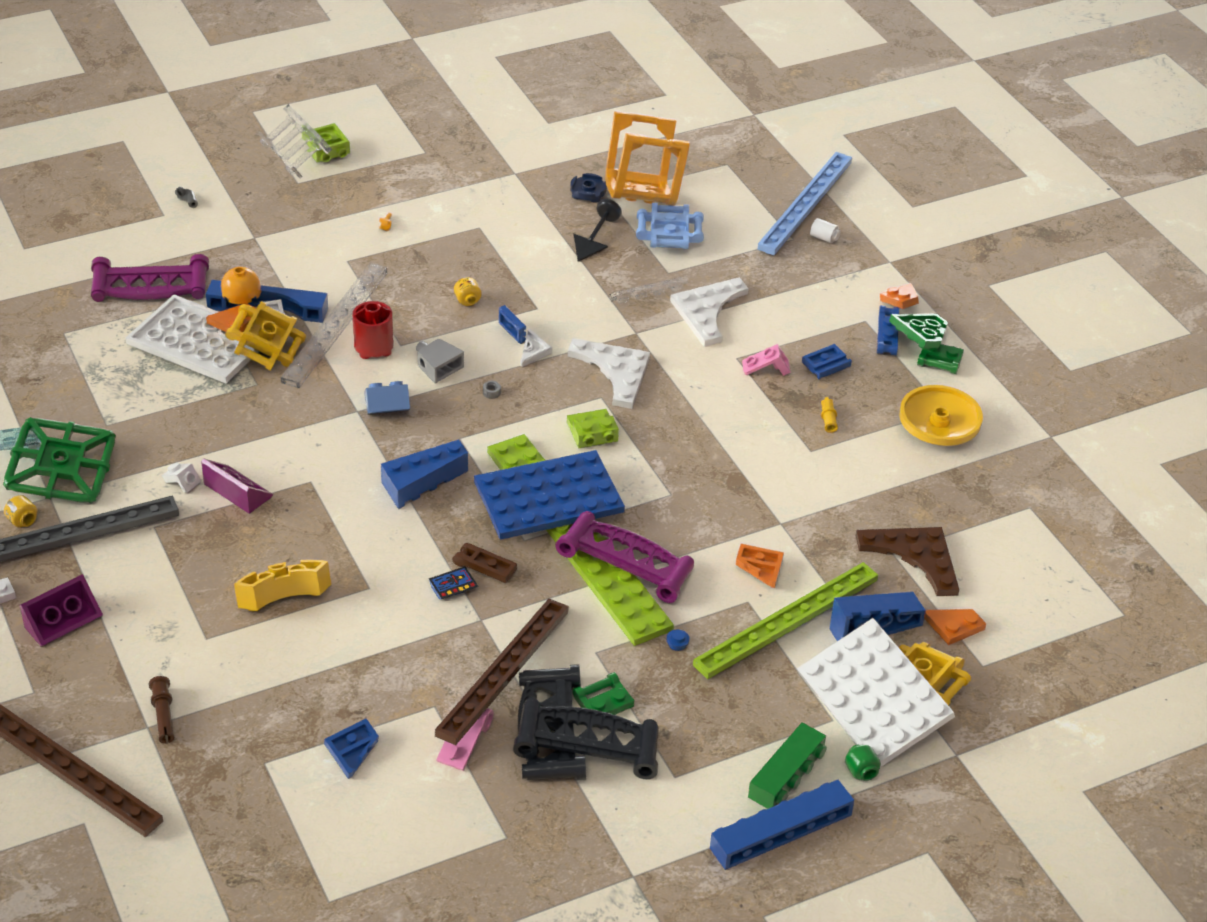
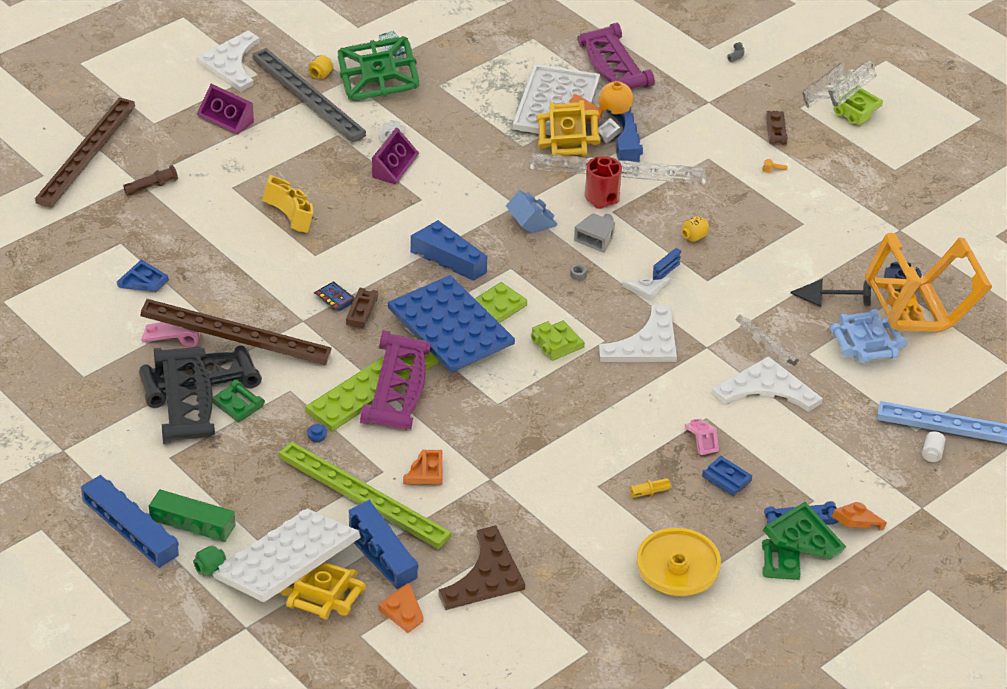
camera: 75 degrees right, 0 degrees up
(326, 204) = (776, 127): none -> reddish brown plate

